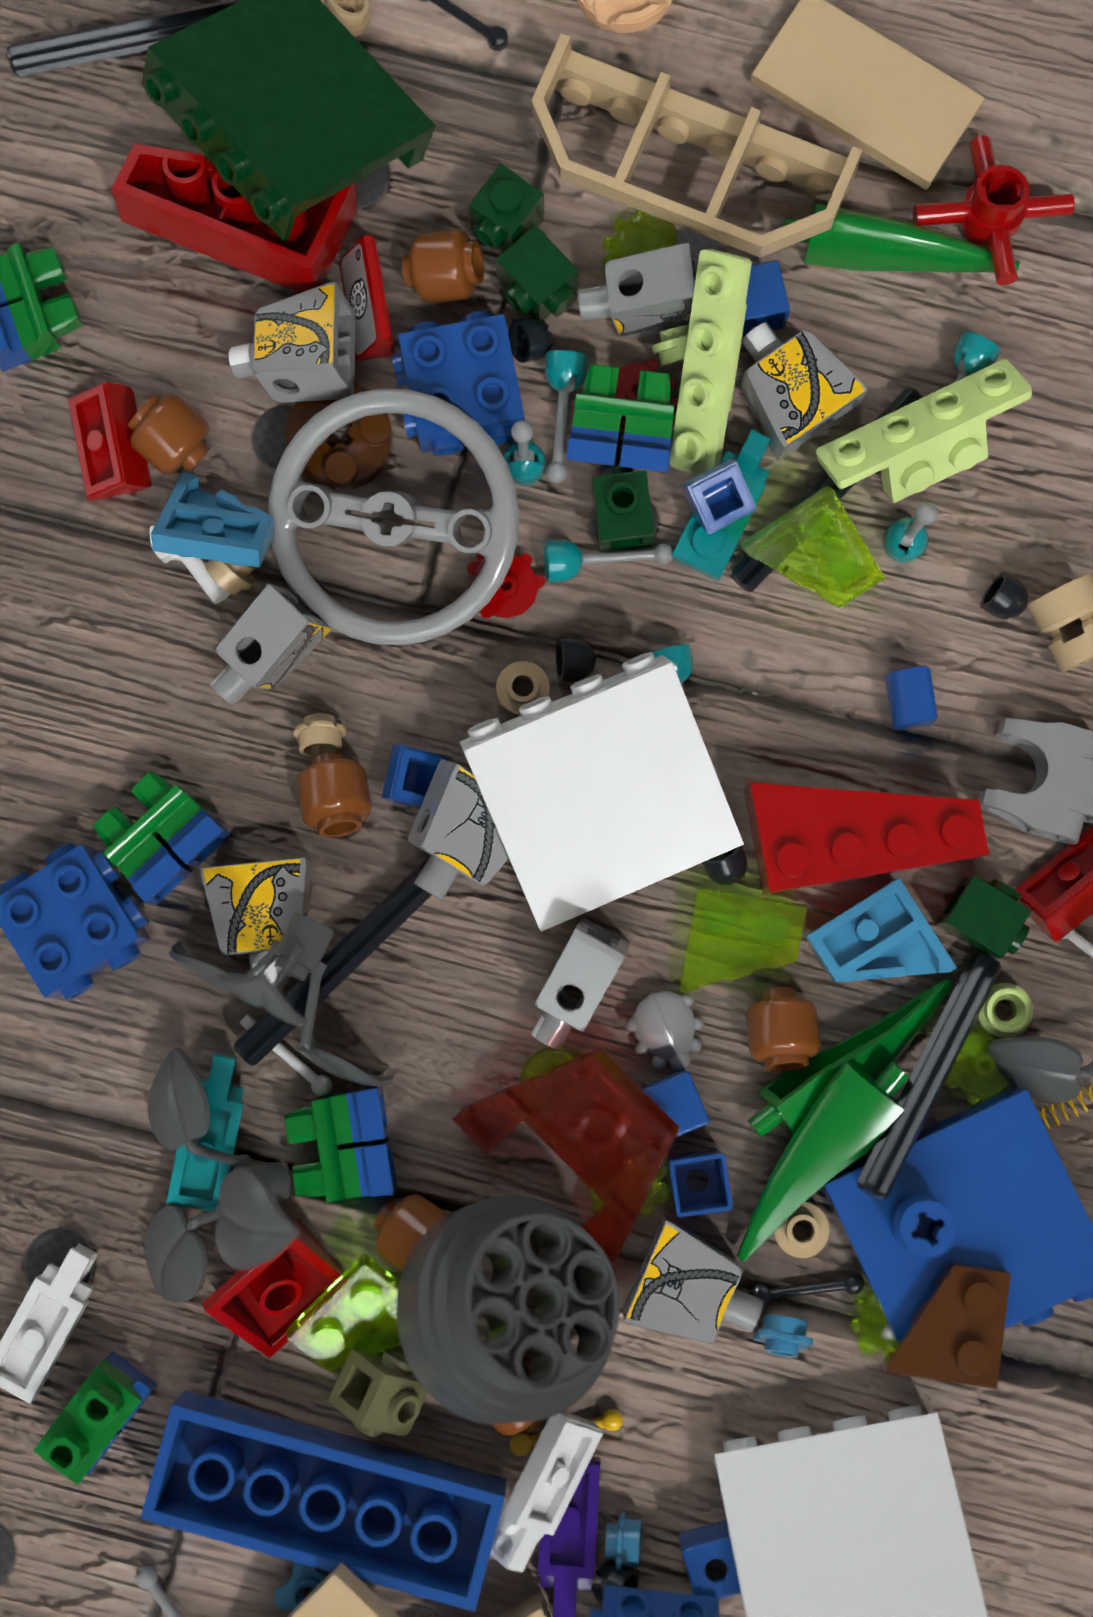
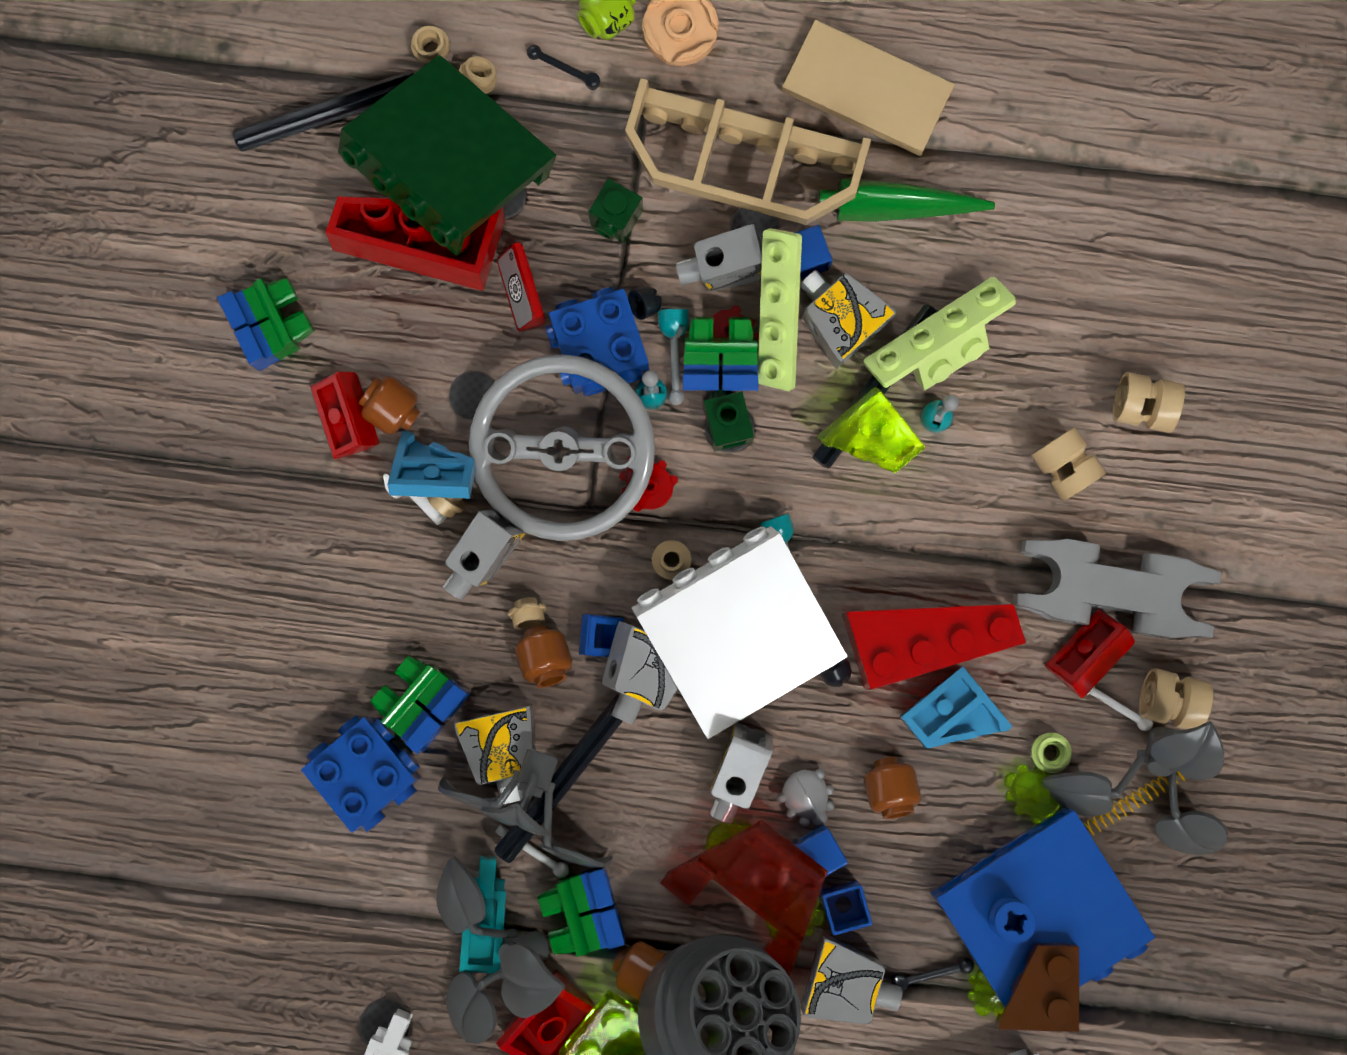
camera: 10 degrees left, 0 degrees up
(302, 347) = (479, 330): light grey torso -> none
(344, 465) = (517, 411): reddish brown plate -> none
(443, 266) = (574, 256): dark orange head -> none
(537, 276) = (644, 256): dark green brick -> none
(564, 559) = (691, 462): hinge -> none
(574, 659) = (706, 534): black hinge -> none
(638, 235) = (714, 219): clear neon green piece -> none
(672, 345) = (750, 294): yellowish green plate -> none
(712, 551) = (802, 411): teal hinge -> none
(719, 496) = (798, 404): brick -> none
(737, 936) = (851, 722): clear neon green wing -> none
(783, 1335) = (920, 1010): dark azure plate -> none
(811, 1245) = (912, 925): tan plate -> none
(833, 1135) = (939, 861): green piece -> none
(870, 1050) = (939, 813): green piece -> none
(911, 698) = (955, 533): blue brick -> none
(929, 1075) = (1002, 809): black axle -> none
(973, 354) = (969, 275): teal hinge -> none
(986, 916) = (1029, 686): dark green brick -> none
(994, 208) = (973, 177): red bar -> none
(1005, 597) = (1014, 450): black hinge -> none

